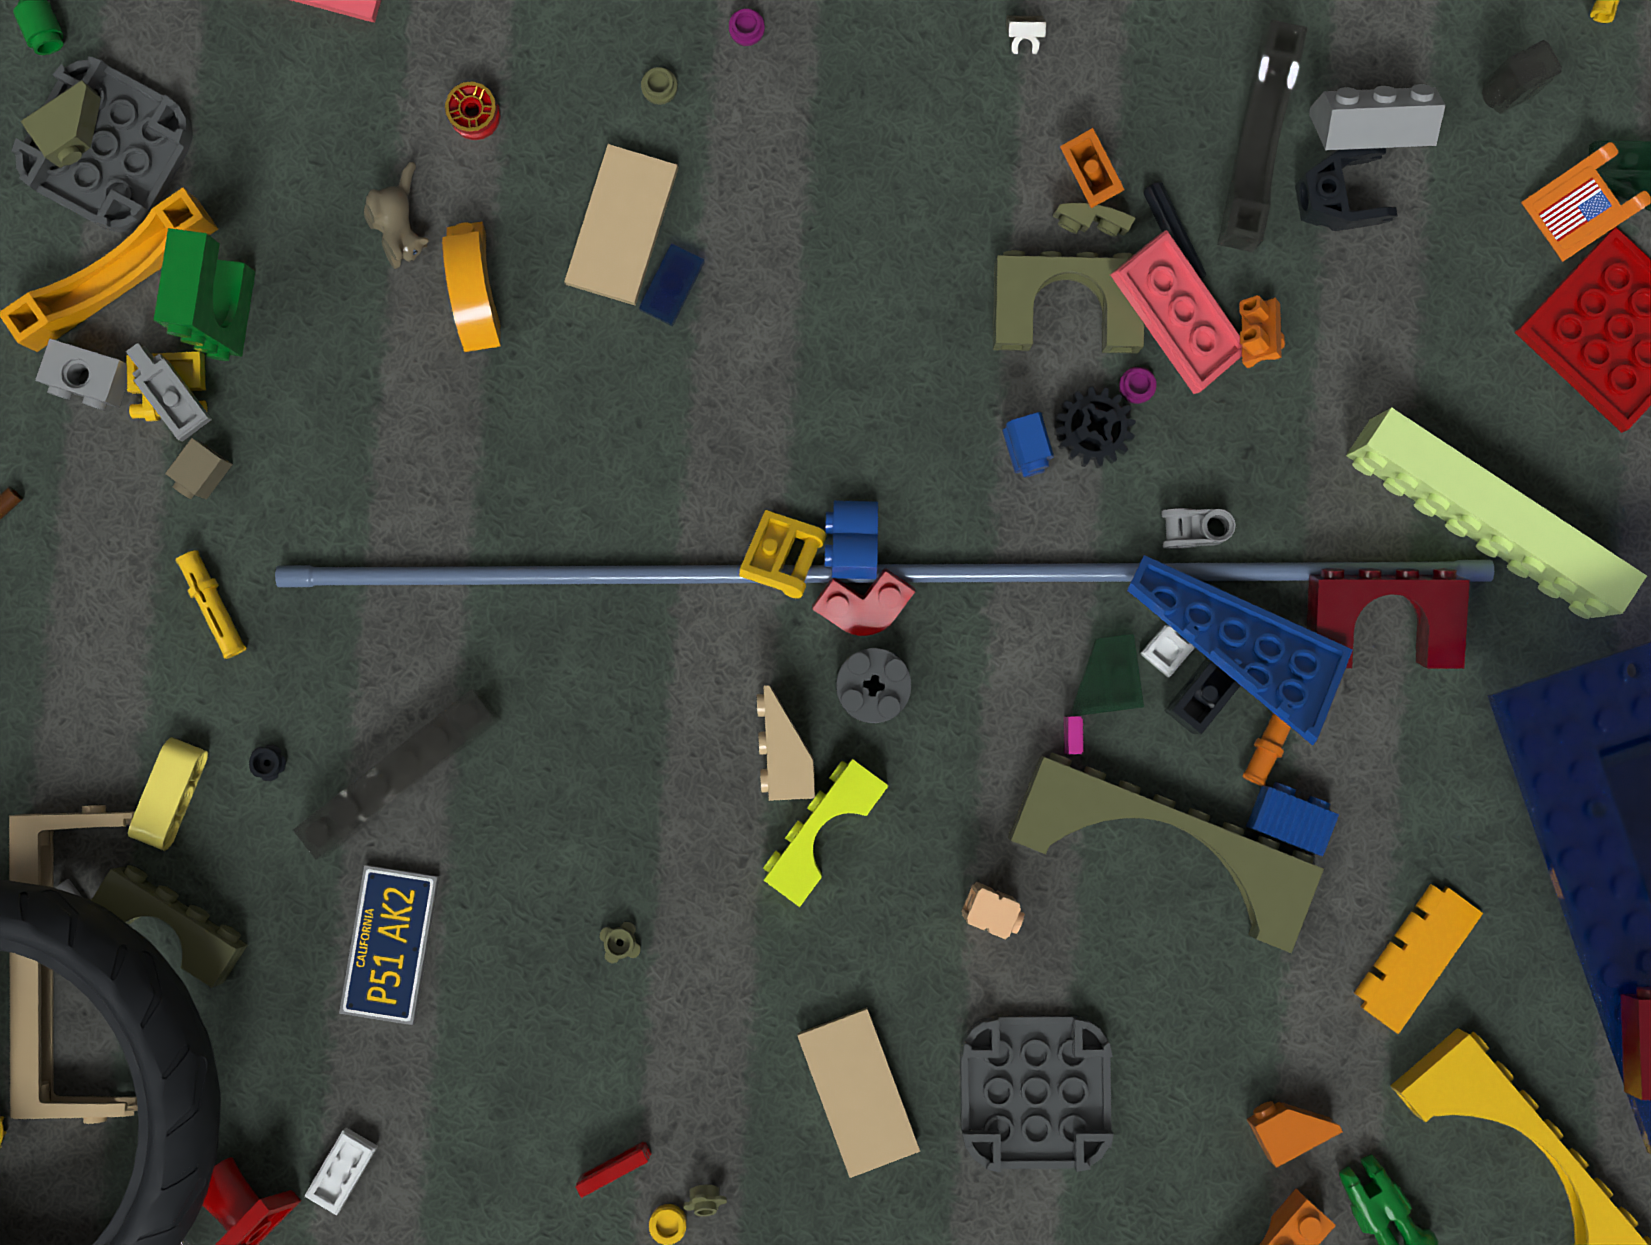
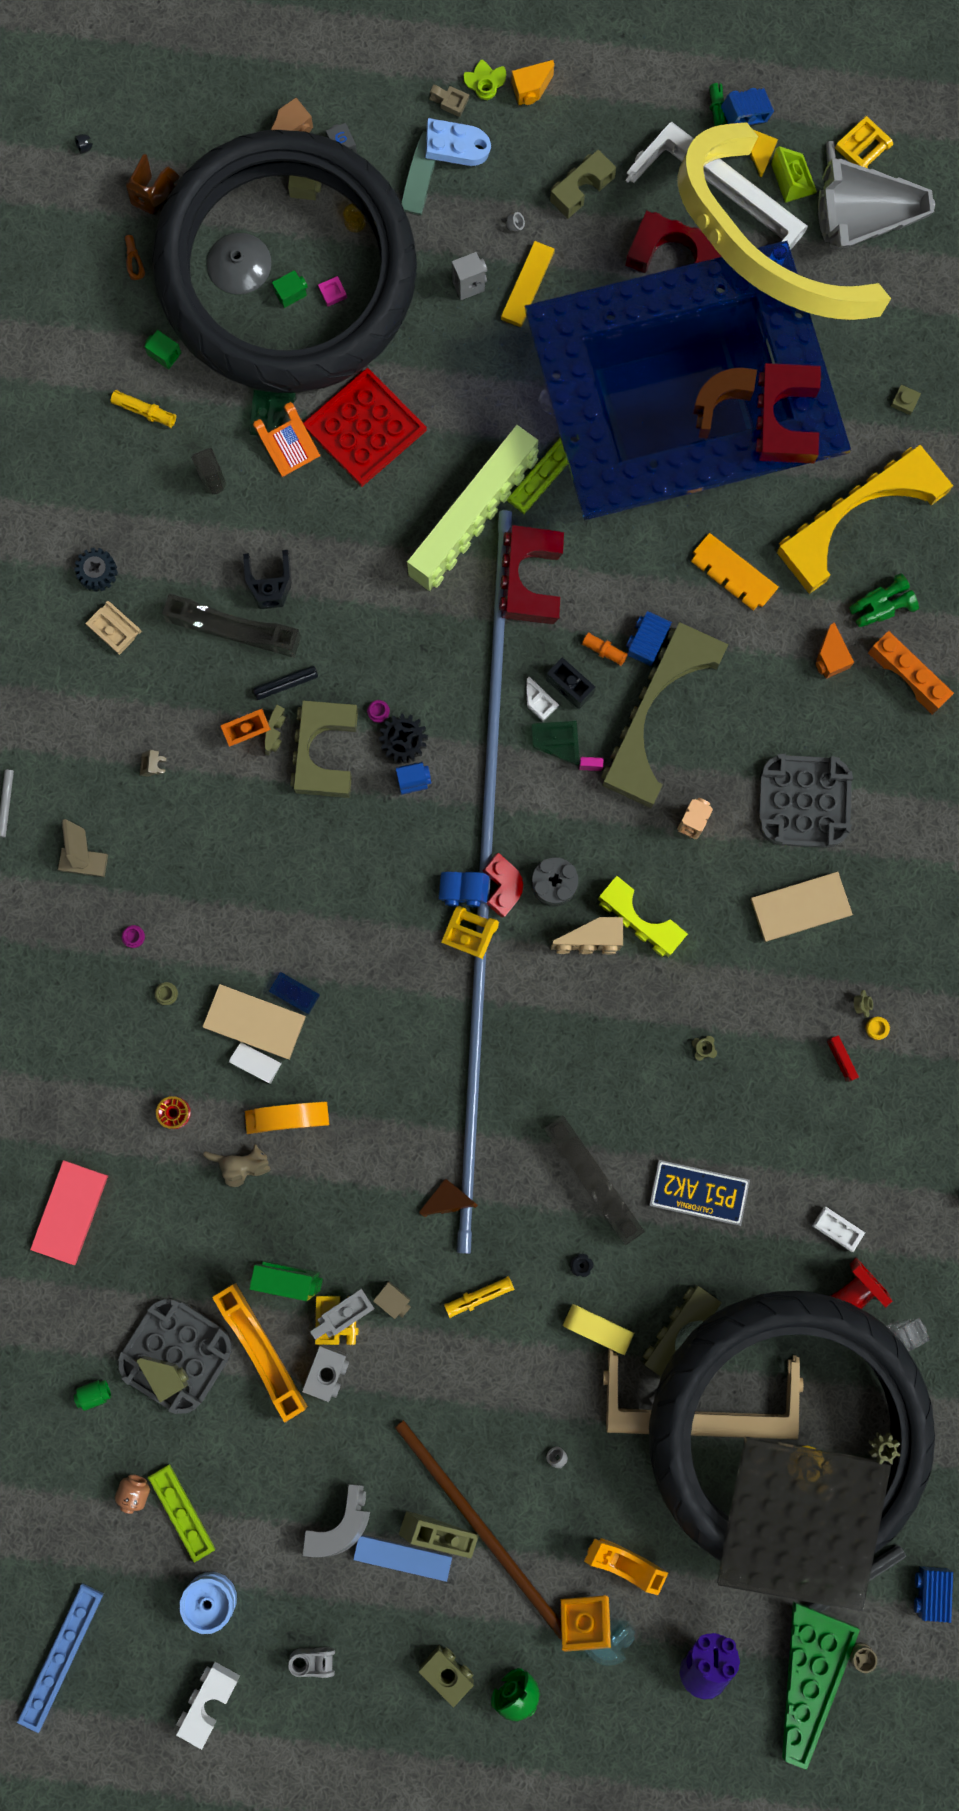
camera: 90 degrees left, 5 degrees down
(358, 545) = (447, 1199): none -> reddish brown tile
(556, 231) = (255, 1062): none -> white slope
(1179, 311) = (336, 682): coral tile -> none
(1189, 527) = (469, 684): light grey piece -> none
(1261, 330) = (351, 635): orange hips -> none
(1267, 655) = (550, 644): blue wing -> none
(1378, 117) = (228, 556): light grey slope -> none
(1551, 622) = (539, 478): none -> lime tile

